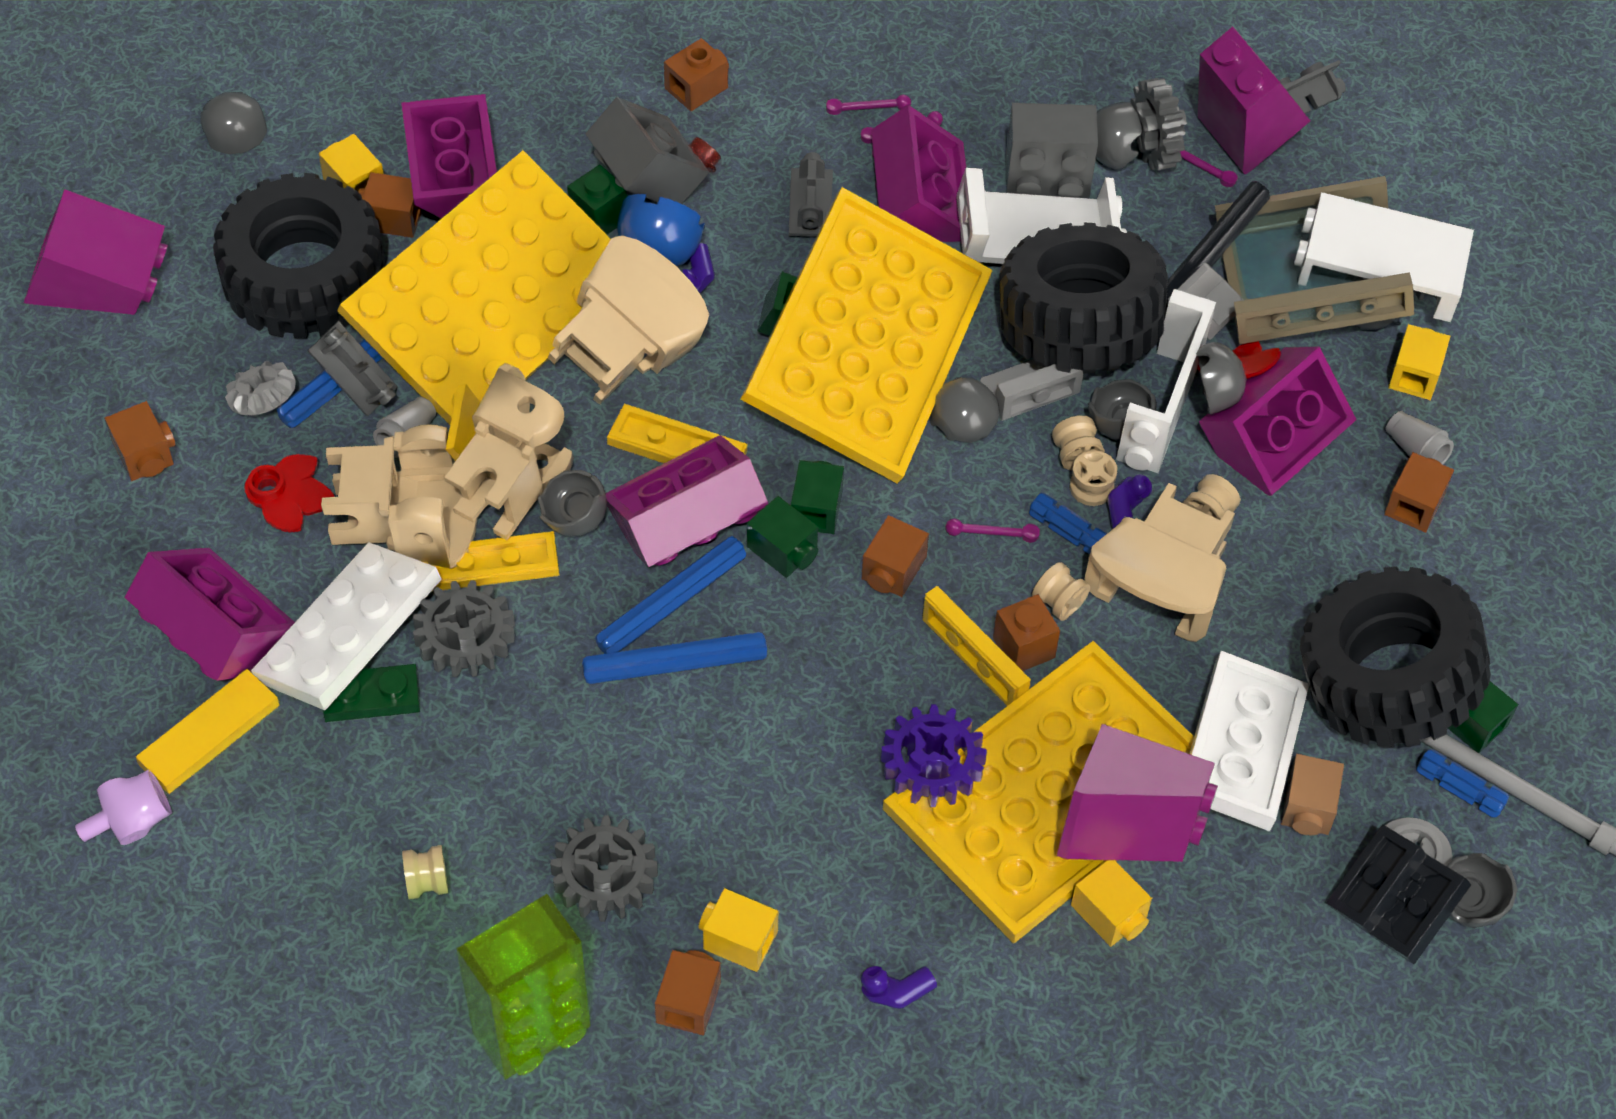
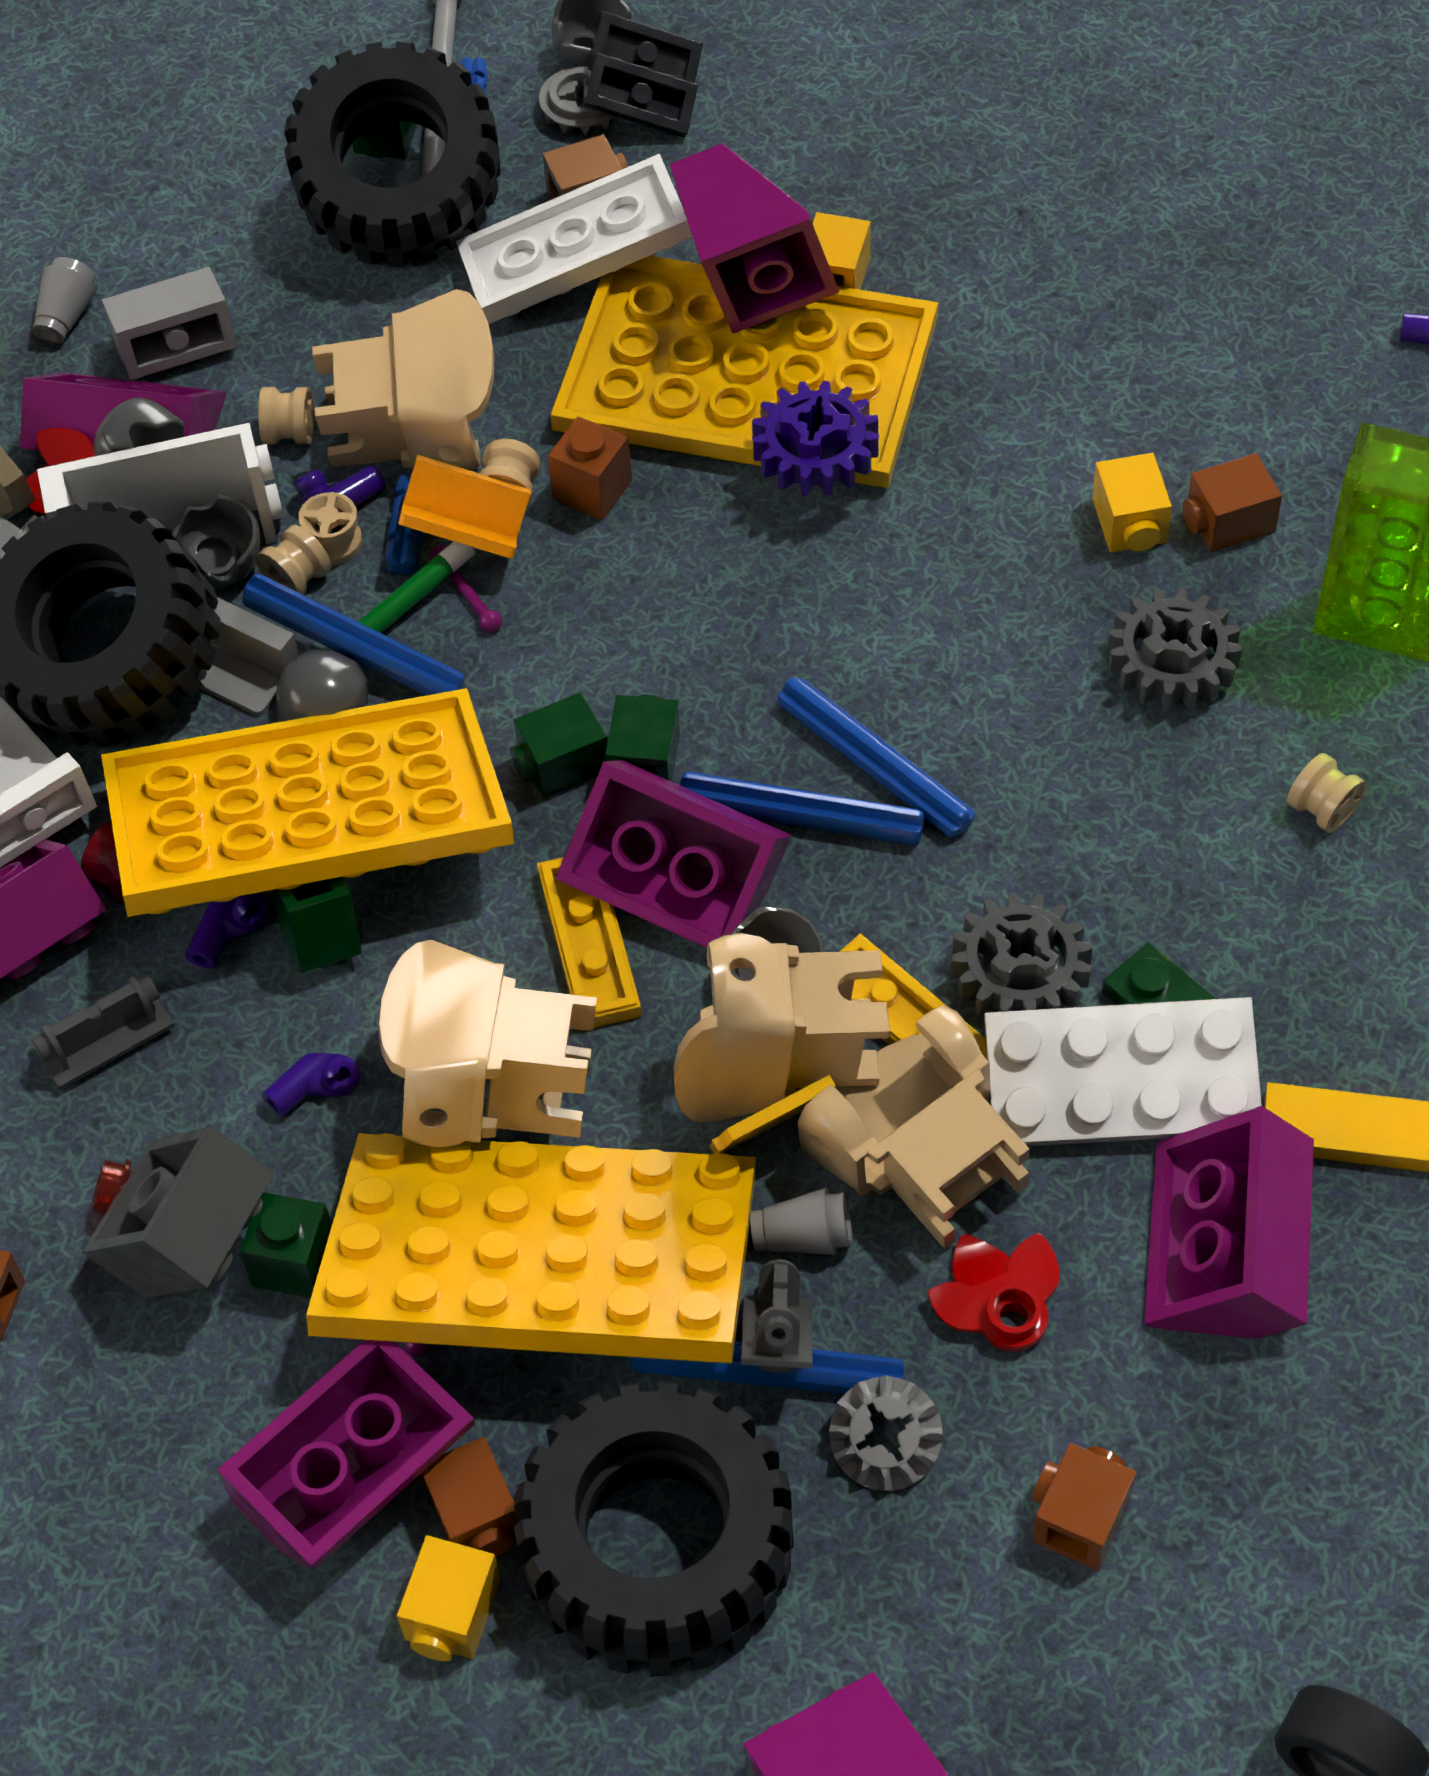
camera: 120 degrees left, 0 degrees up
(662, 226) = (297, 1130): blue cylinder -> none
(894, 556) = (585, 631): dark orange brick -> none
(894, 992) = (1069, 367): dark purple arm -> none
(974, 647) = (640, 505): yellow tile -> none
(984, 434) = (349, 637): none -> blue axle
(1005, 486) = (417, 587): none -> green bar
(1034, 534) = (464, 506): none -> light orange panel
(1345, 479) = (170, 323): none -> light grey brick
(1419, 492) = (133, 258): dark orange brick -> none

